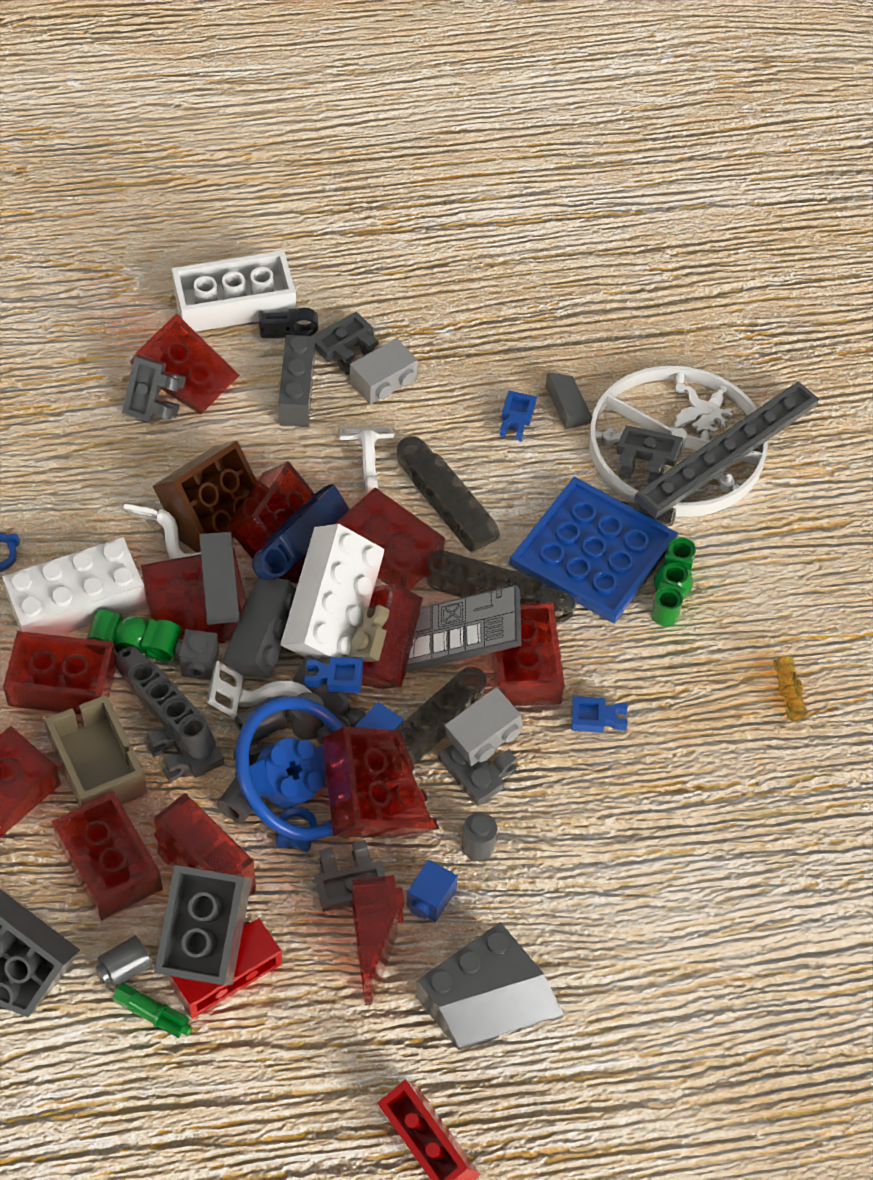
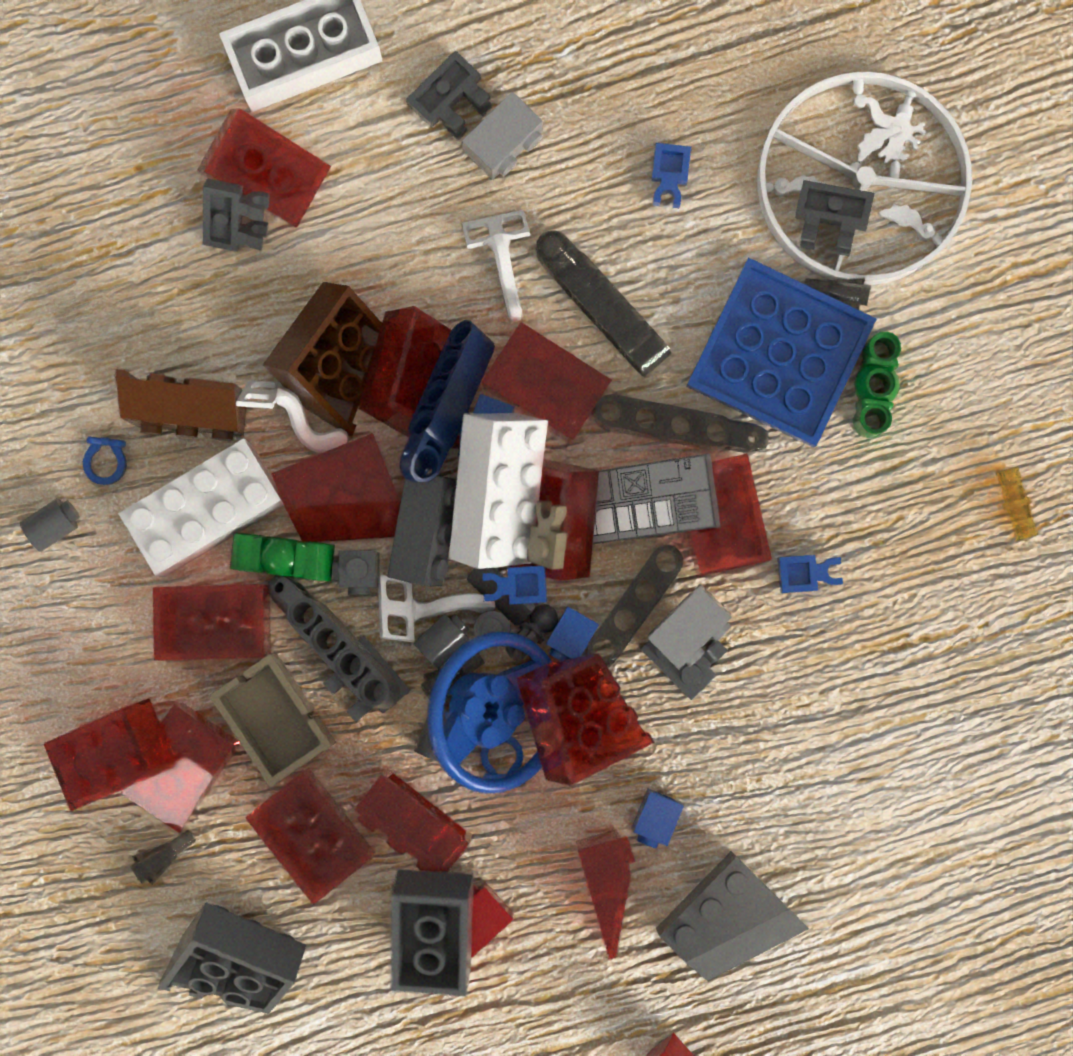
camera: 10 degrees left, 30 degrees up
(74, 505) = (182, 407): none -> reddish brown wedge
(123, 962) = (352, 947): dark grey brick -> none
(153, 1011) = (380, 987): green piece -> none
(219, 578) = (364, 483): dark grey tile -> none
(284, 323) = (381, 79): black piece -> none
(296, 381) = (401, 168): dark grey brick -> none
(335, 885) = (569, 822): dark grey plate -> none
(479, 836) = (699, 747): dark grey brick -> none
(568, 400) = (728, 140): dark grey slope -> none
(725, 450) = (926, 193): dark grey tile -> none

